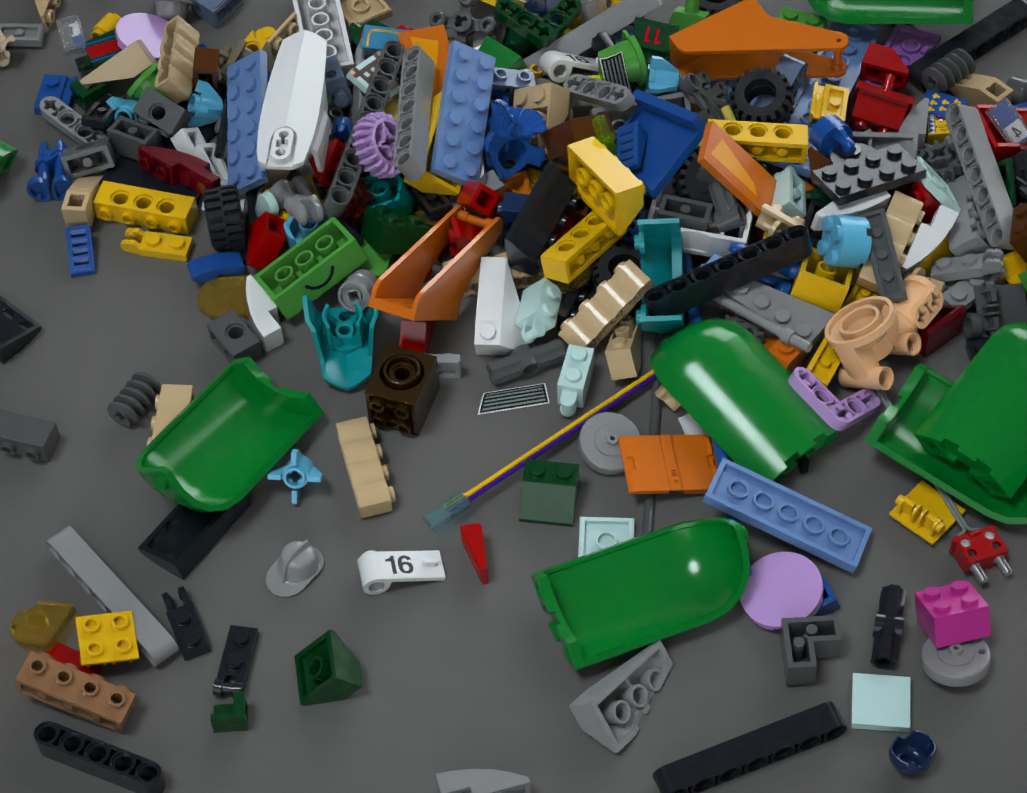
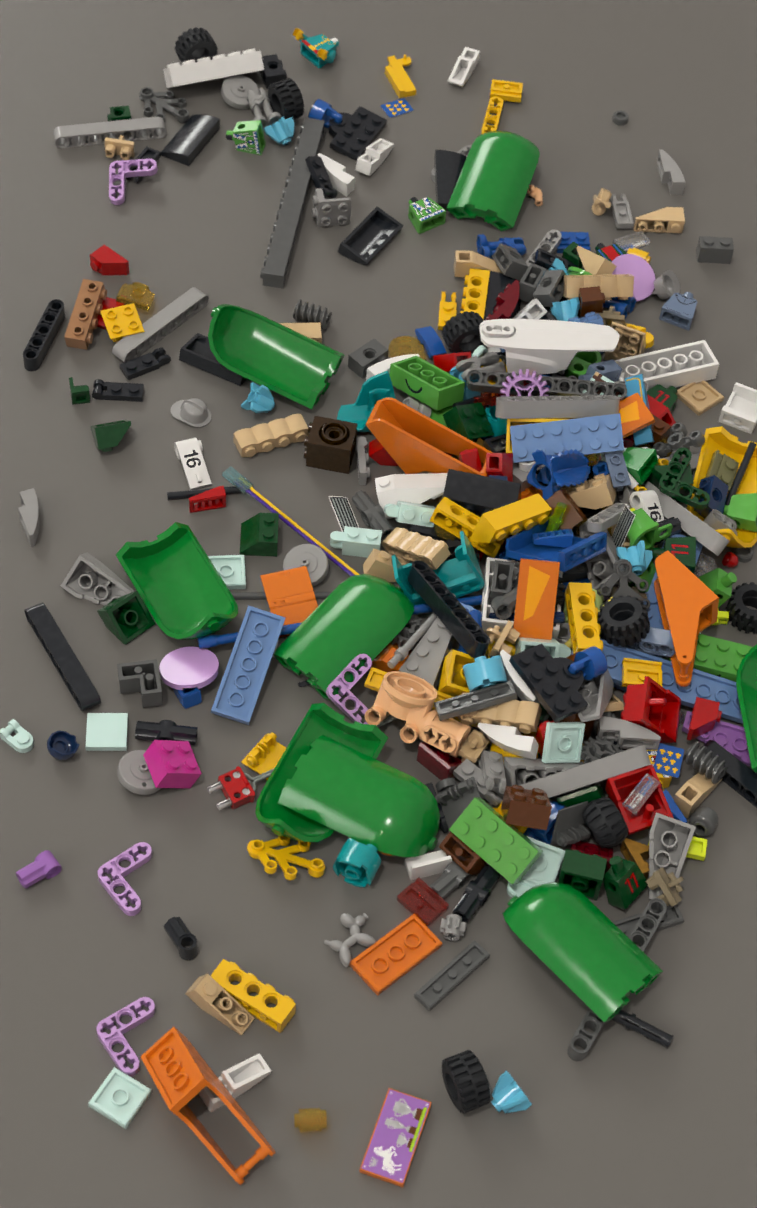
camera: 75 degrees right, 0 degrees up
(80, 236) = (442, 268): blue slope -> none
(455, 564) = (190, 493): none -> black bar
(685, 667) = (126, 617): none -> dark green slope

